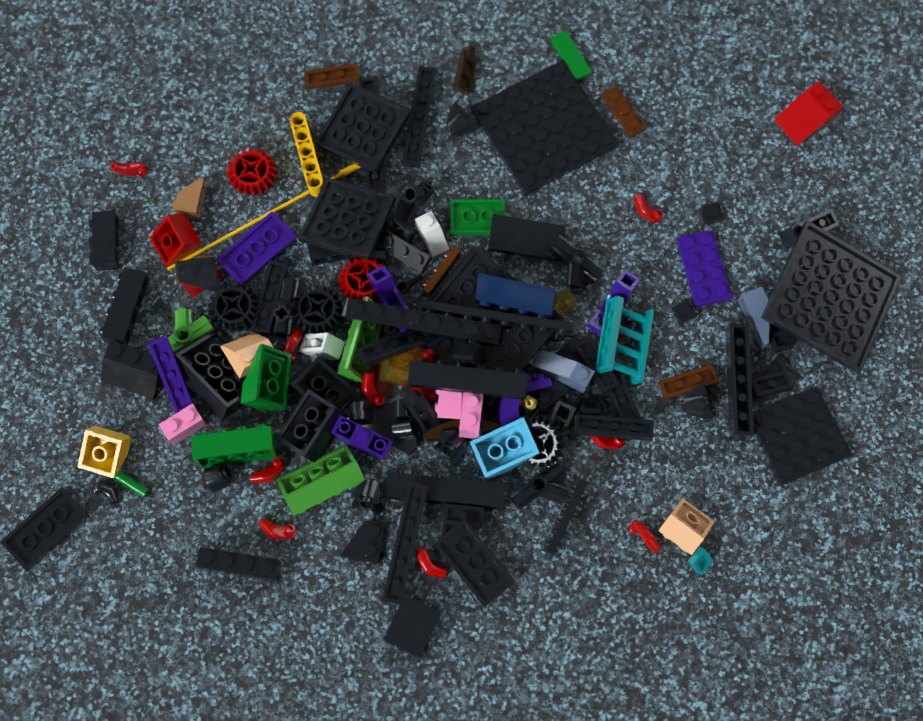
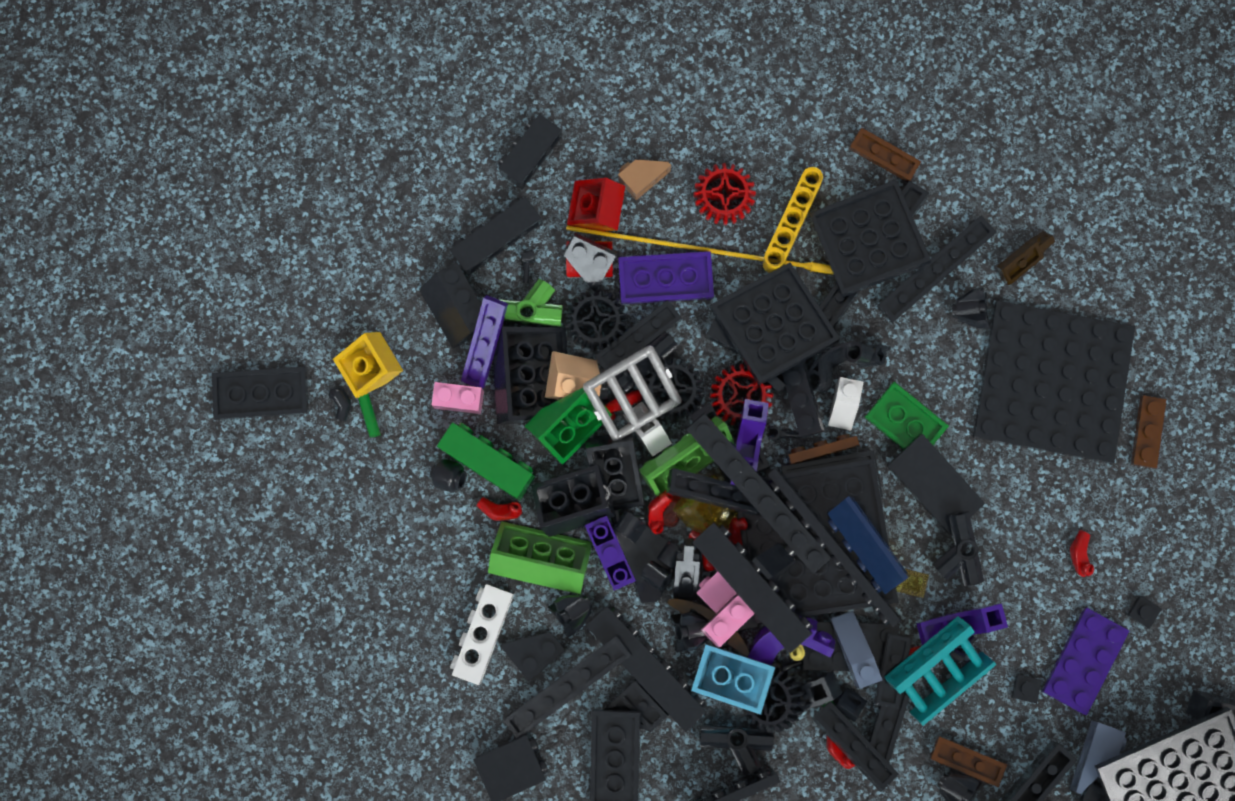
camera: 45 degrees right, 10 degrees up
(130, 169) = (611, 94): red arm -> none
(238, 565) = (402, 576): black brick -> none
(270, 326) = (609, 376): none -> light grey bar
(277, 532) = (462, 573): red arm -> none
(337, 585) = (475, 671): none -> white brick
(428, 565) = (572, 723): red arm -> none
(569, 53) = (1147, 327): green tile -> none

